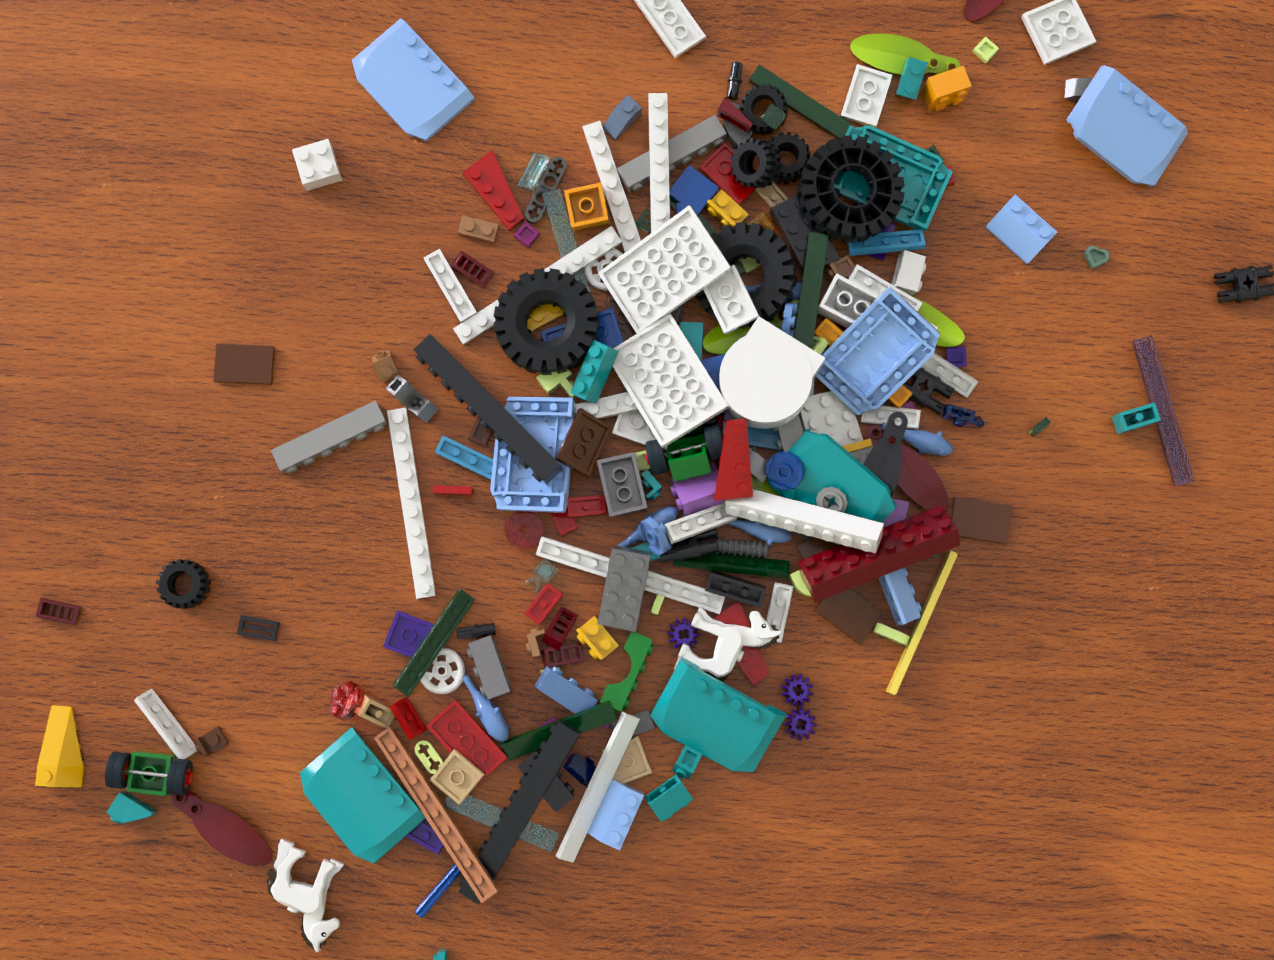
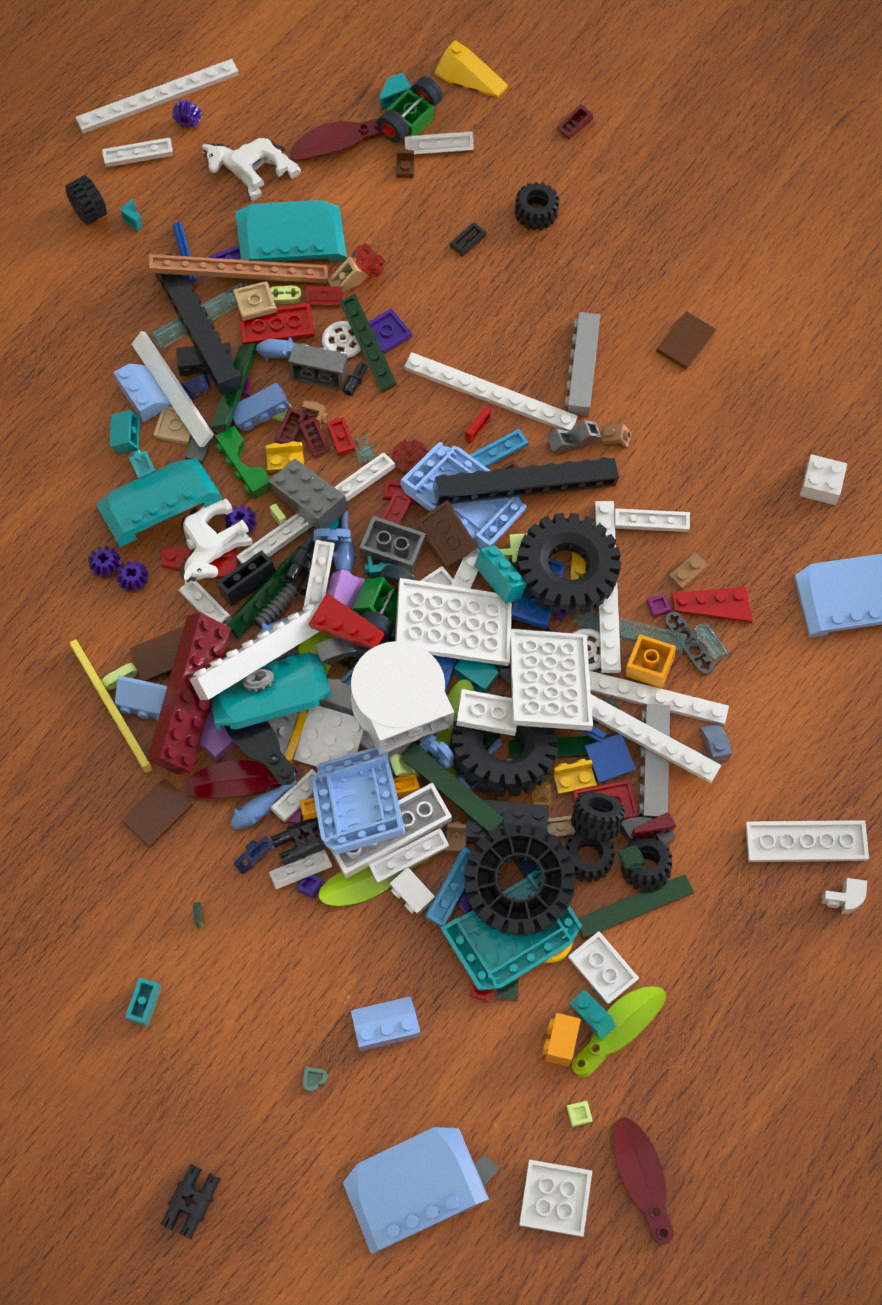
camera: 125 degrees right, 15 degrees down
(455, 266) = (667, 534): dark red slope -> none
(734, 81) = (691, 860): black axle -> none
(785, 470) = (311, 662): blue tile -> none
(1168, 426) = (133, 1037): clear purple plate -> none

